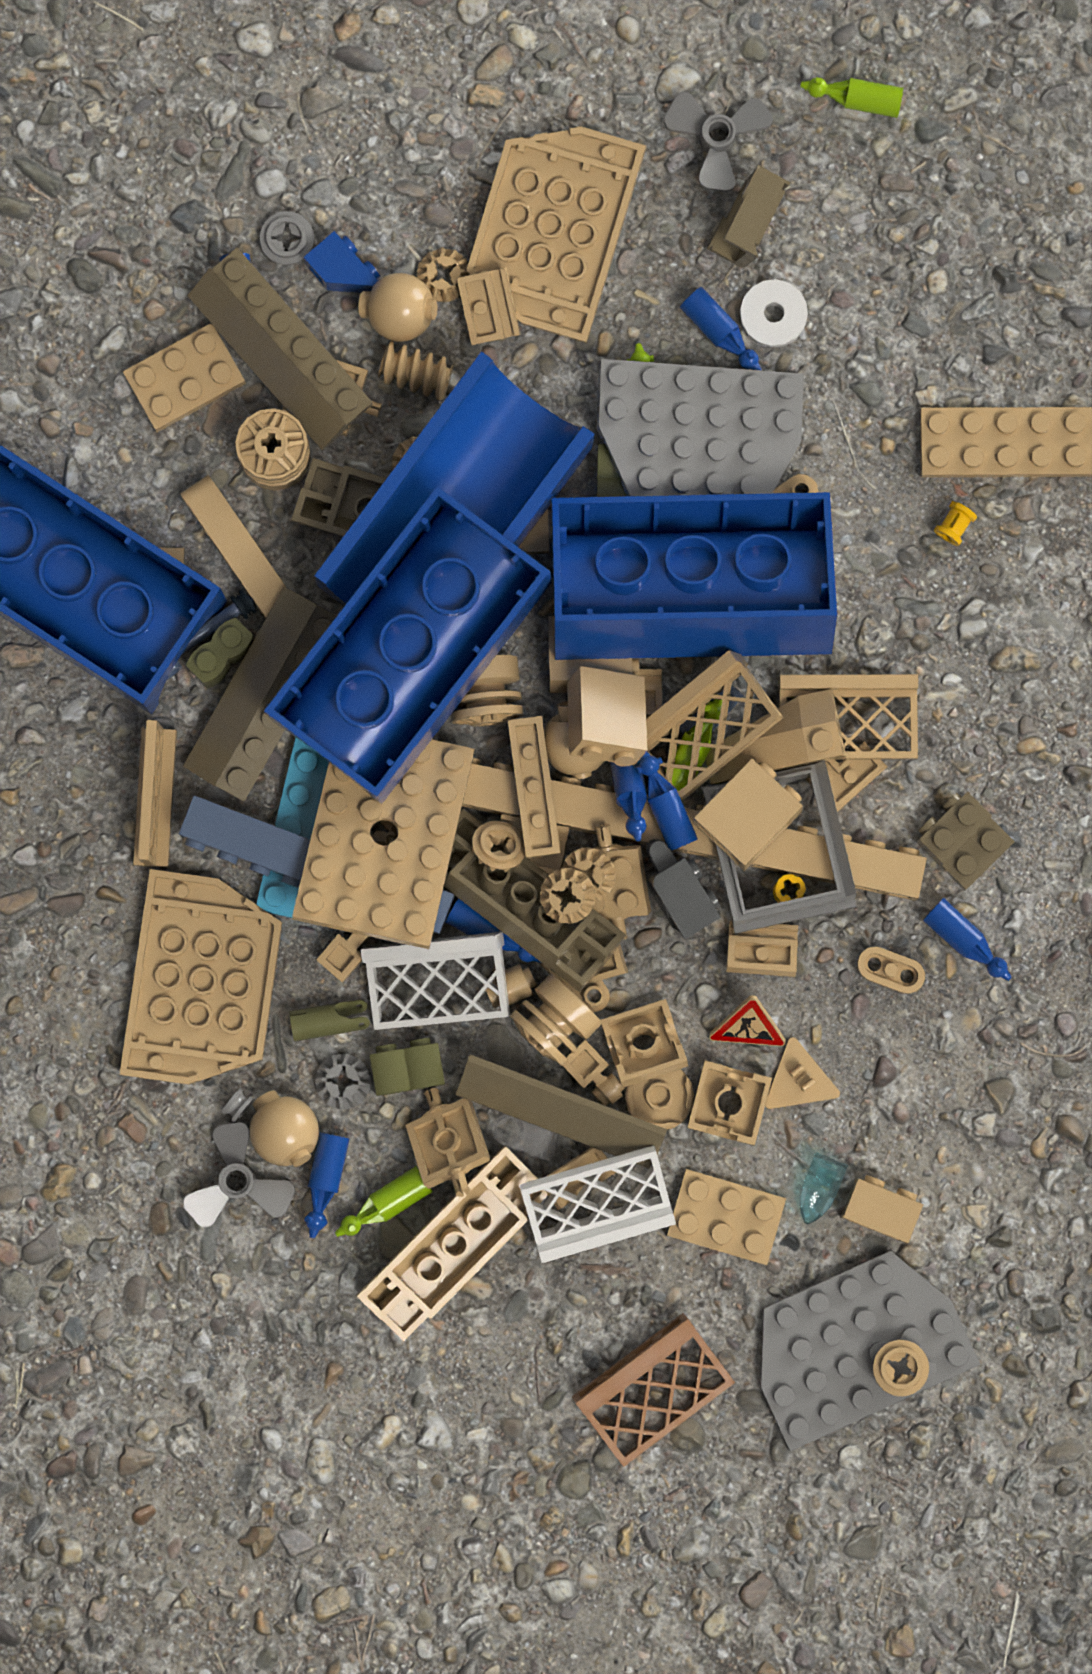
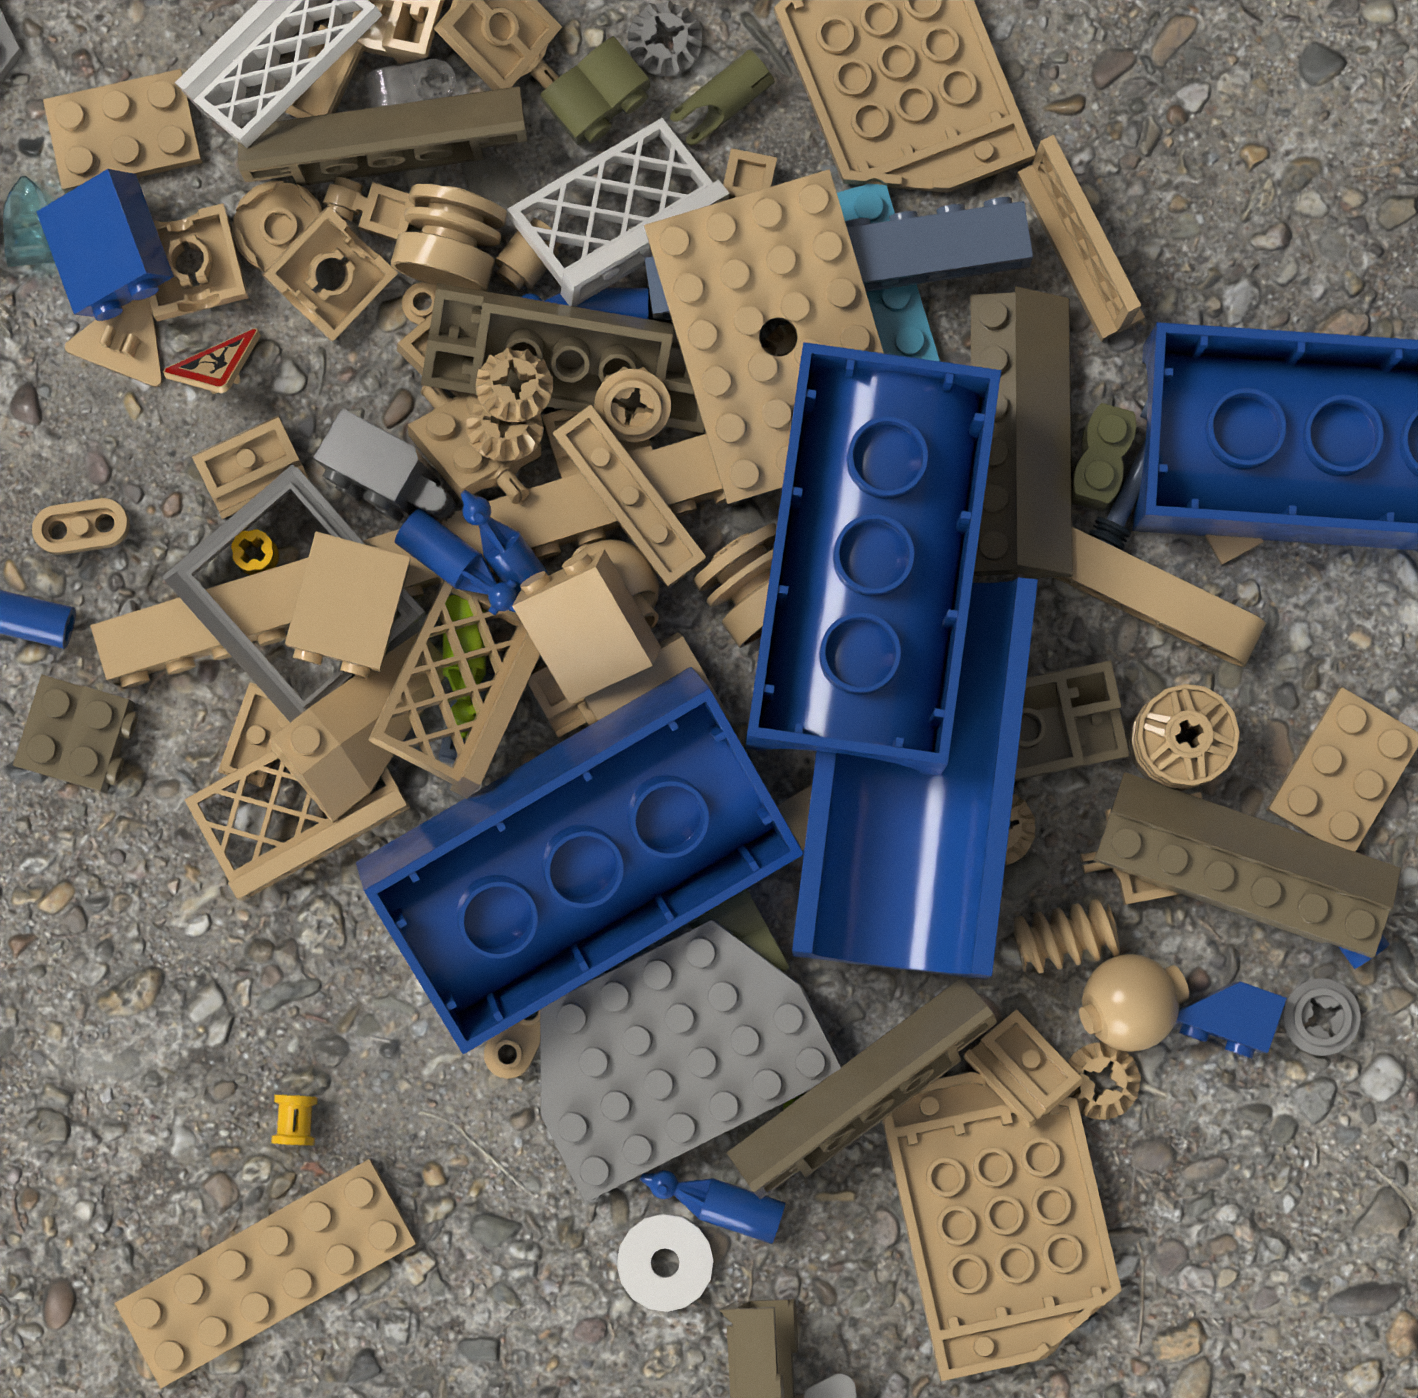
camera: 155 degrees right, 0 degrees up
(596, 342) = (863, 1090): none -> dark tan slope
(778, 1138) = (105, 245): none -> blue brick

